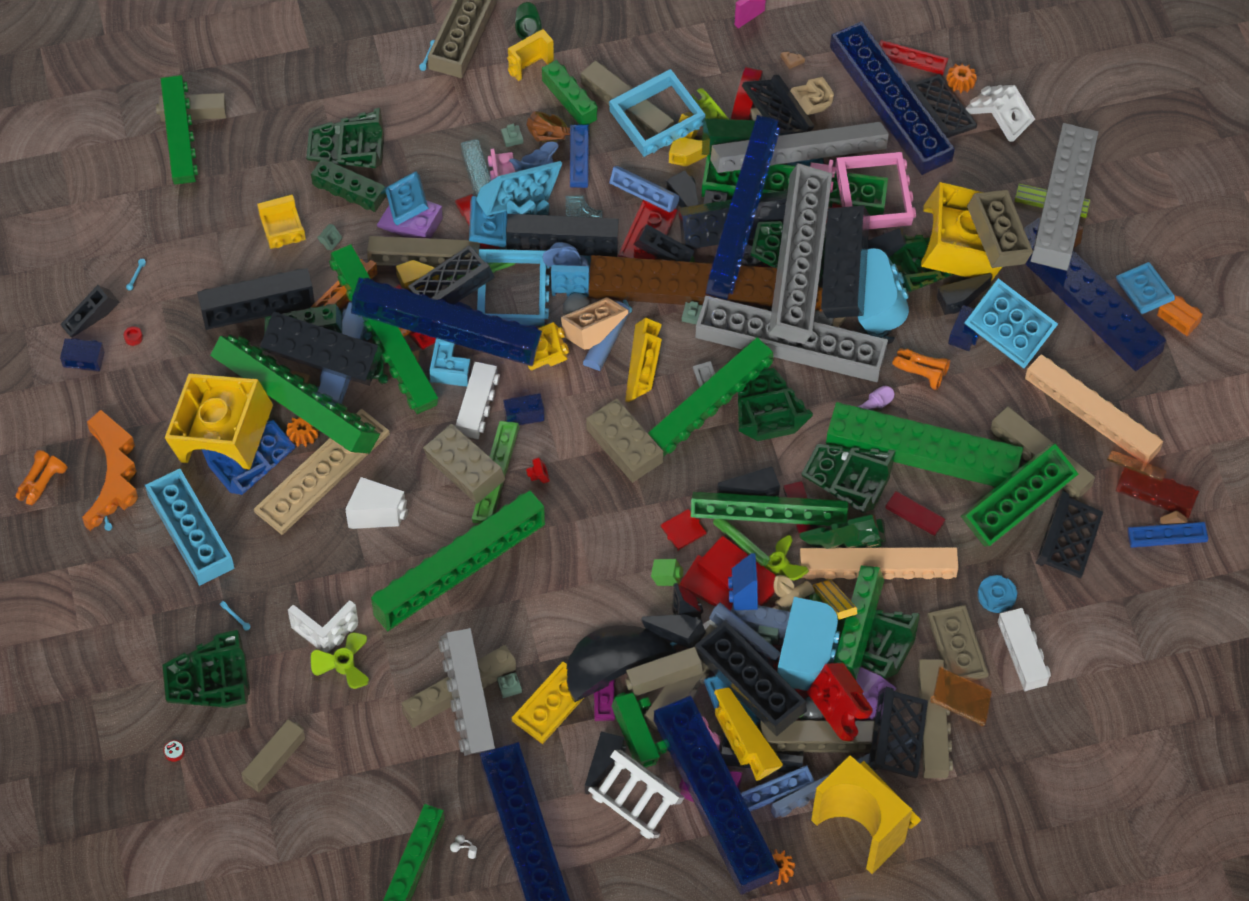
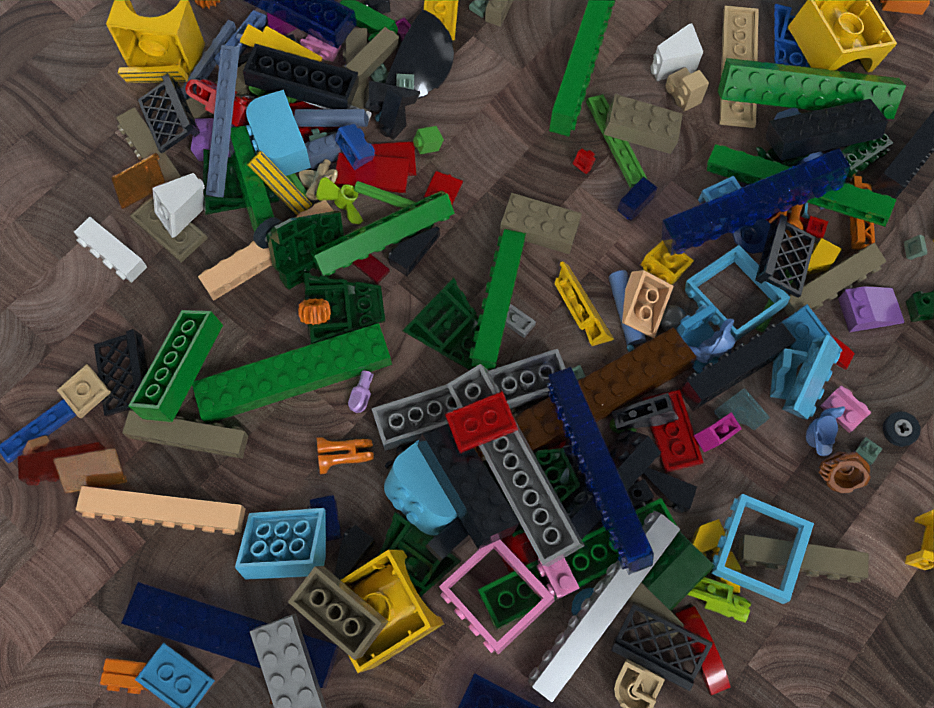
camera: 145 degrees right, 10 degrees up
(395, 468) = (687, 88): none -> tan brick
(406, 198) = (891, 316): dark azure tile -> none
(473, 125) = (909, 423): none -> black bush
(475, 165) = (864, 389): clear light blue brick -> none
(477, 399) = (676, 181): white brick -> none
(569, 93) = (859, 527): green brick -> none
(579, 156) = (795, 471): blue tile -> none
(617, 206) = (717, 432): none -> dark pink slope
(644, 189) = (710, 468): medium blue brick -> none
(649, 635) = (405, 81): none -> sand green tile
(807, 282) = (481, 422): none -> red tile
(854, 663) = (222, 120): none -> sand blue plate
(868, 474) = (314, 311): none -> orange gear
(874, 552) = (263, 229): none -> black bush
(915, 513) = (266, 313): dark red tile -> none
(937, 637) = (178, 202): none -> white slope
(997, 594) = (159, 287): dark azure tile -> none
(1110, 539) = (84, 391): none -> tan plate

